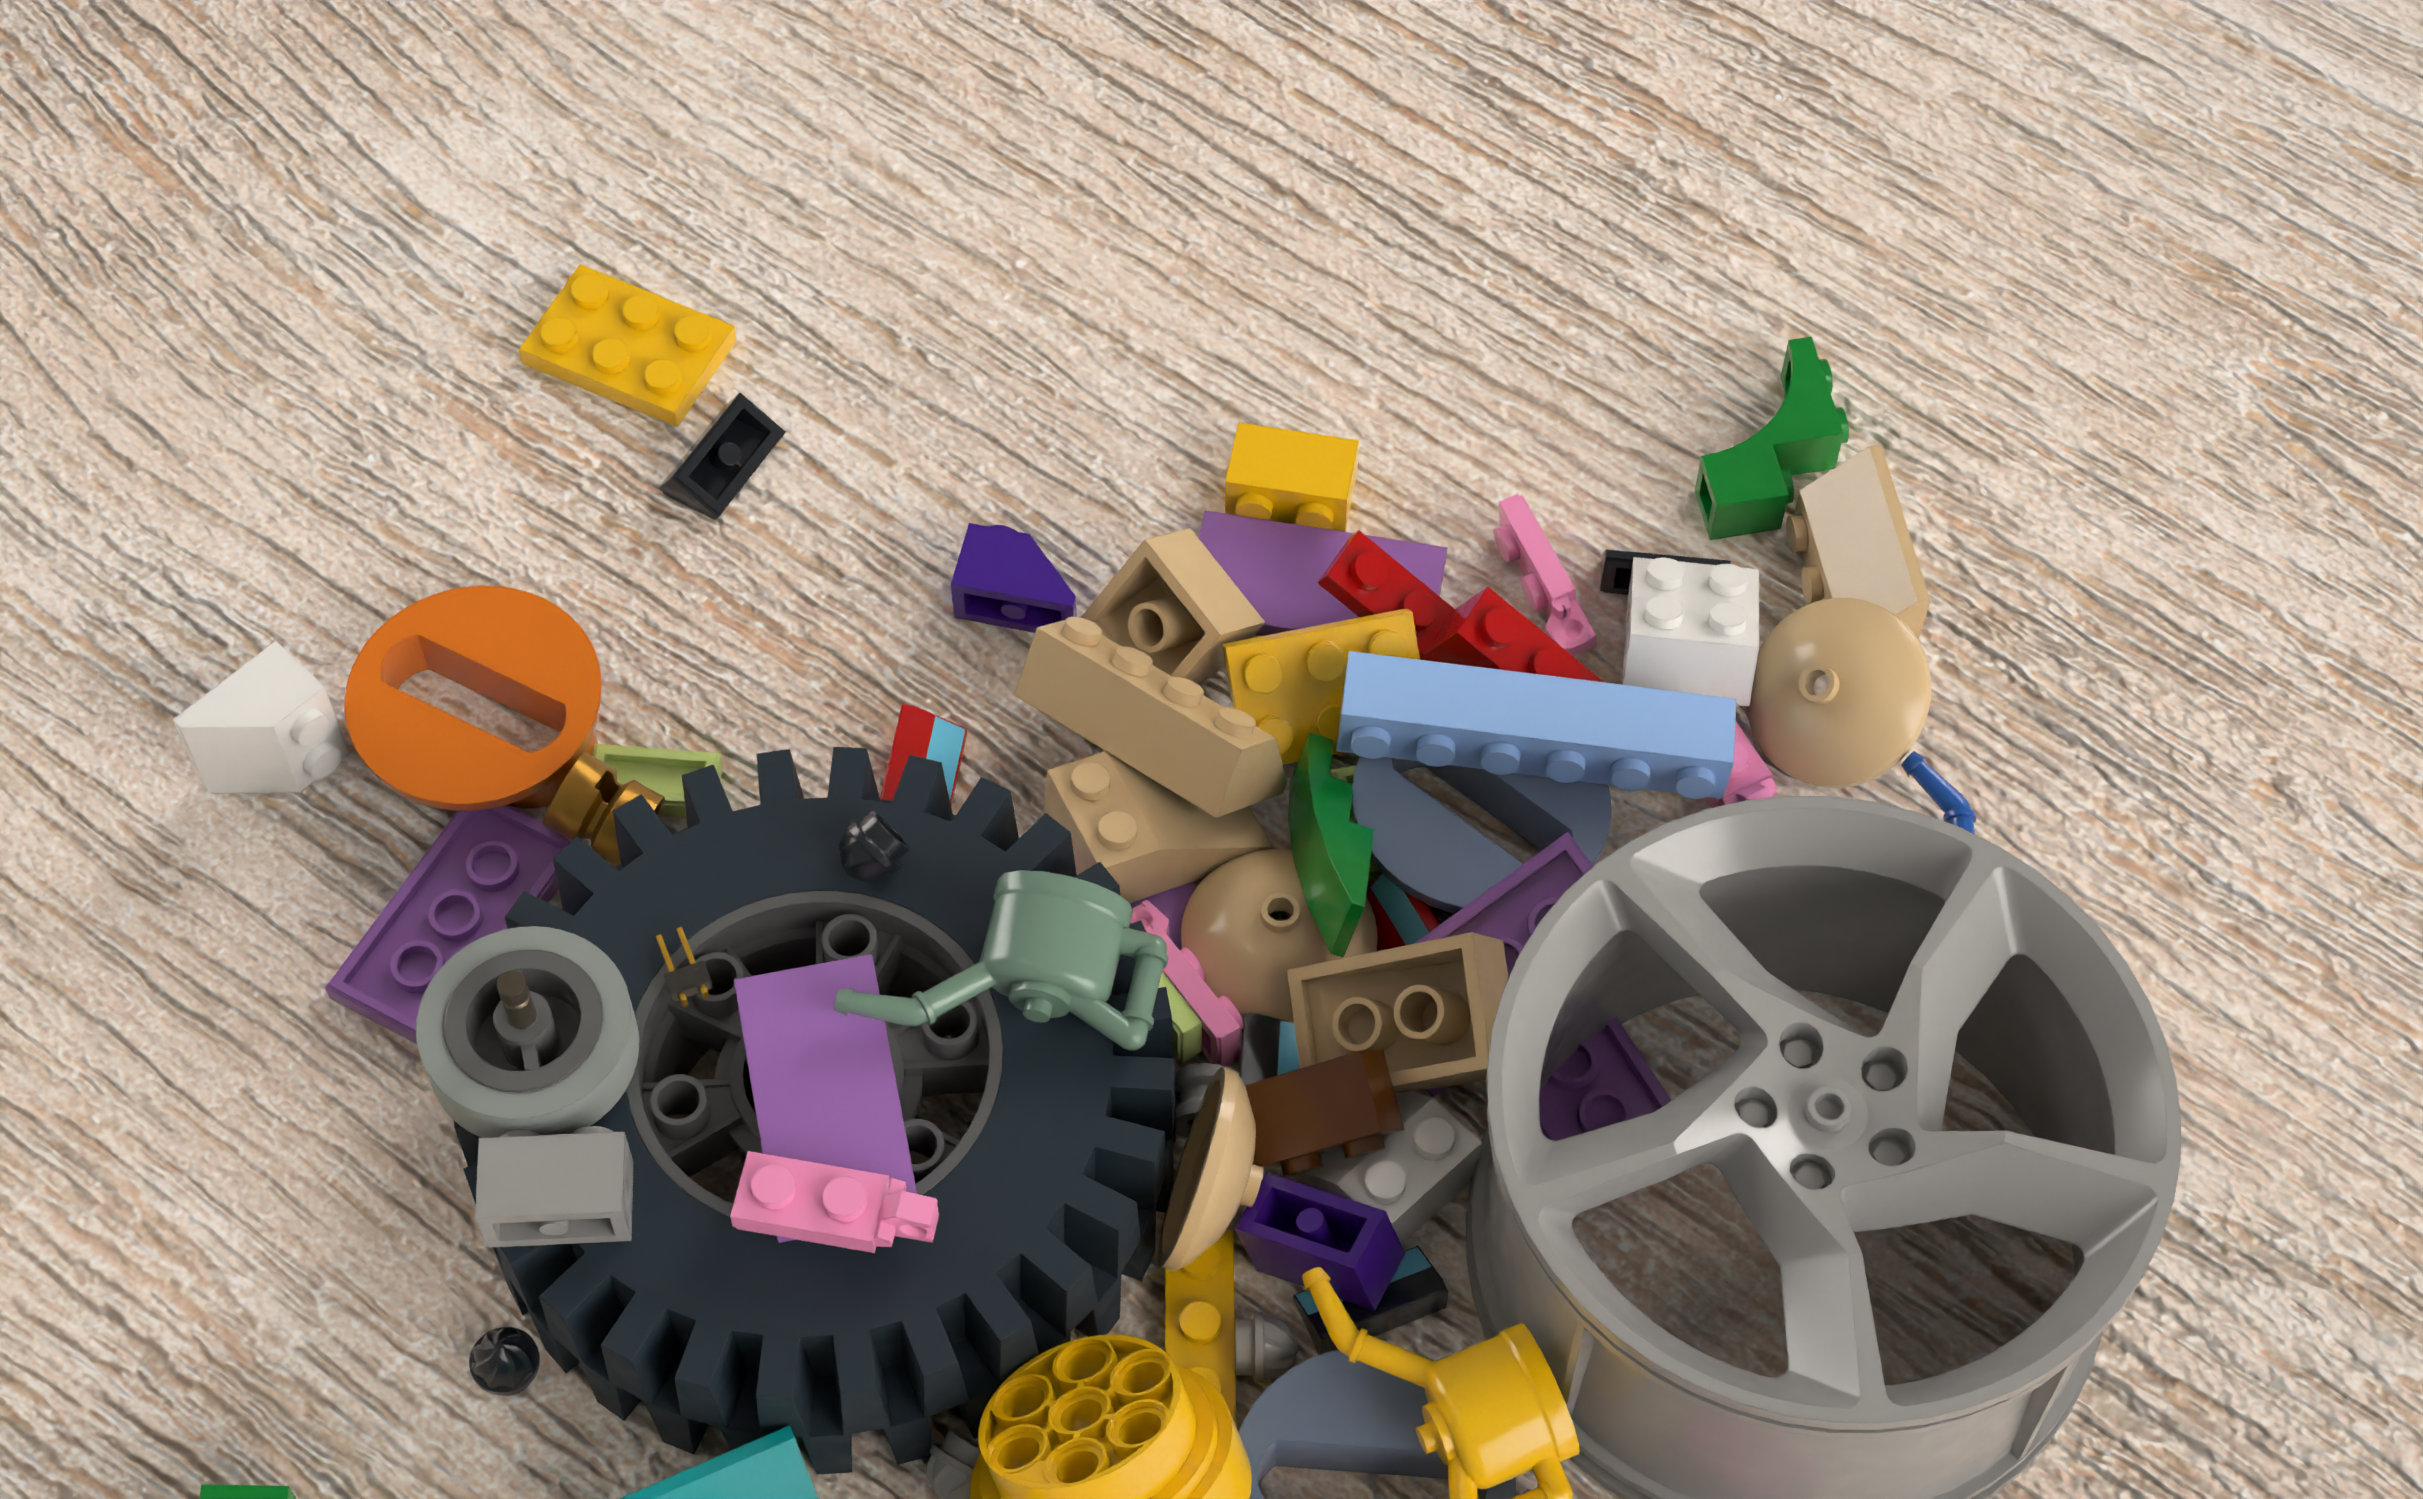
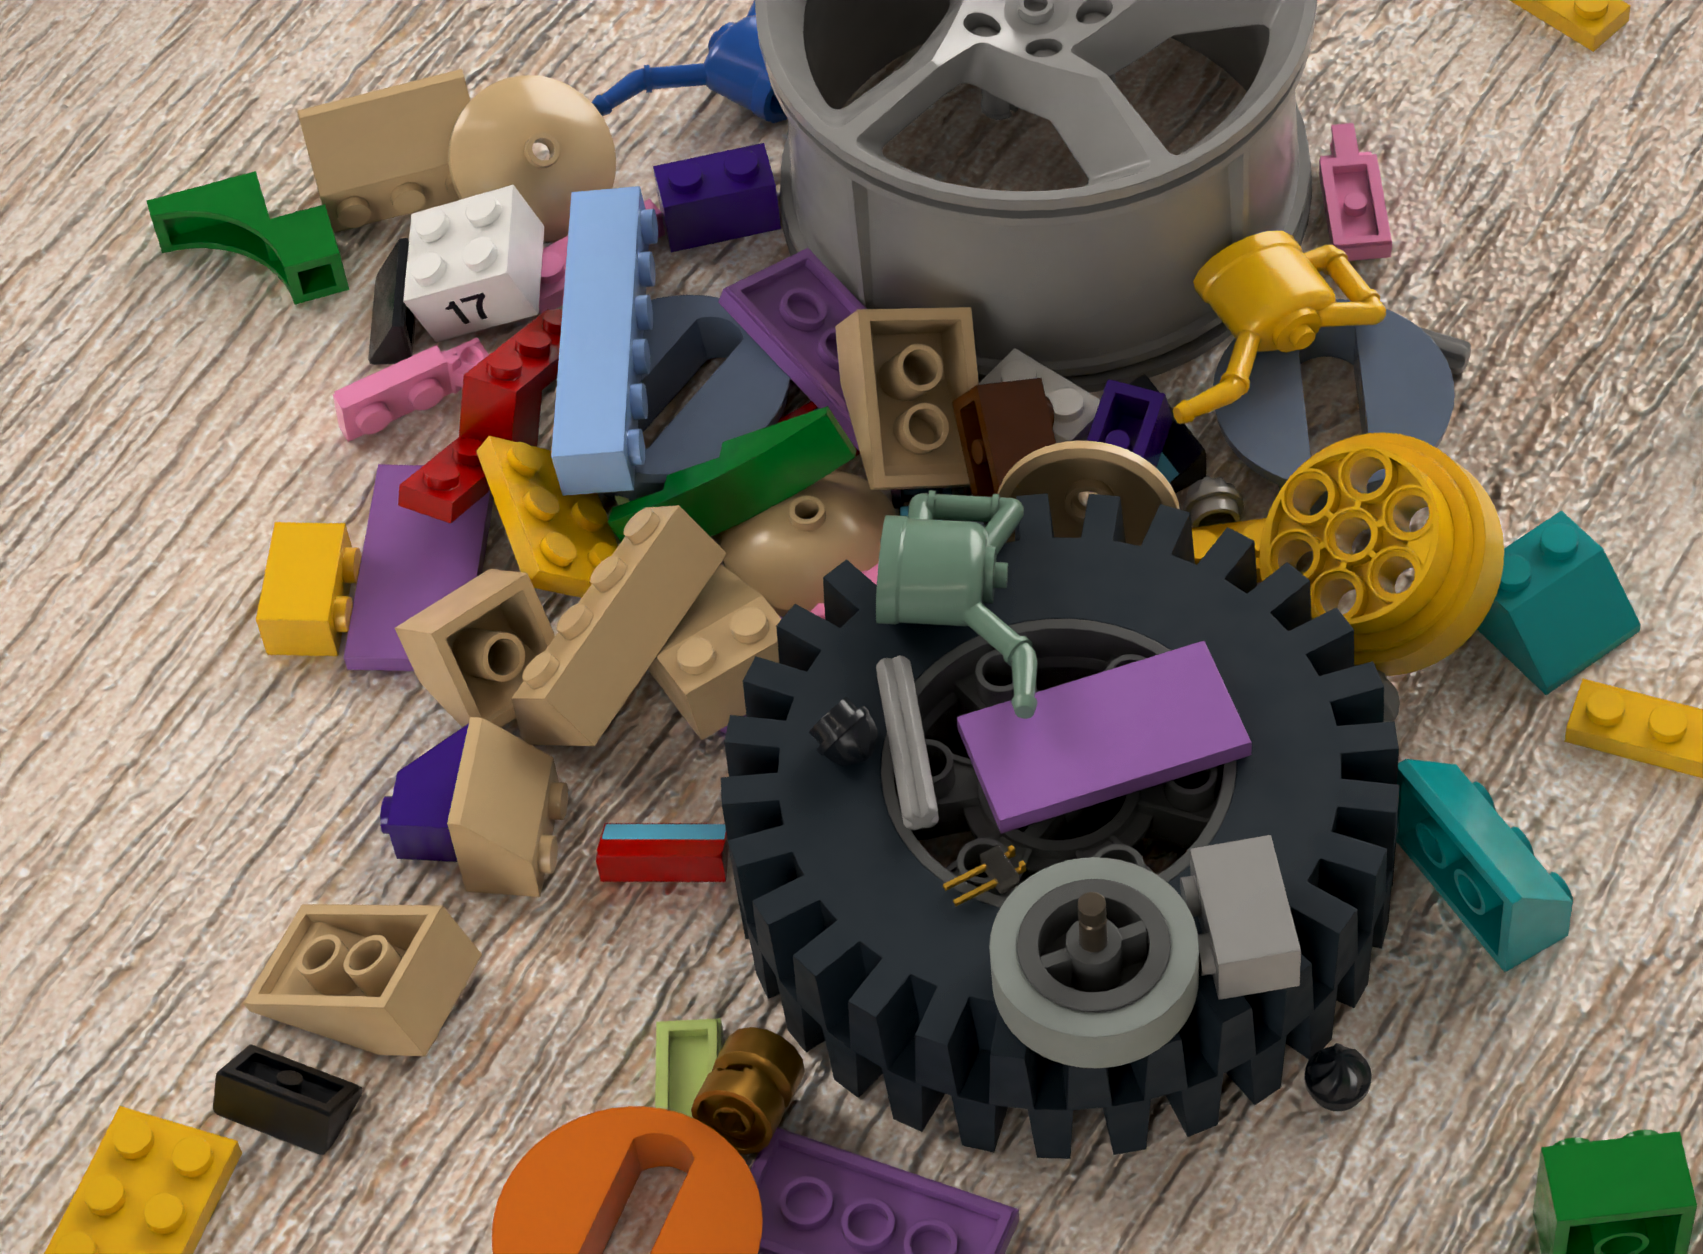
camera: 90 degrees left, 5 degrees down
(820, 515) = (367, 975): none -> tan slope
(829, 1204) = (1222, 697): bright pink hinge -> none
(858, 909) = (907, 743): none -> light grey axle
(967, 621) = (505, 812): none -> tan slope

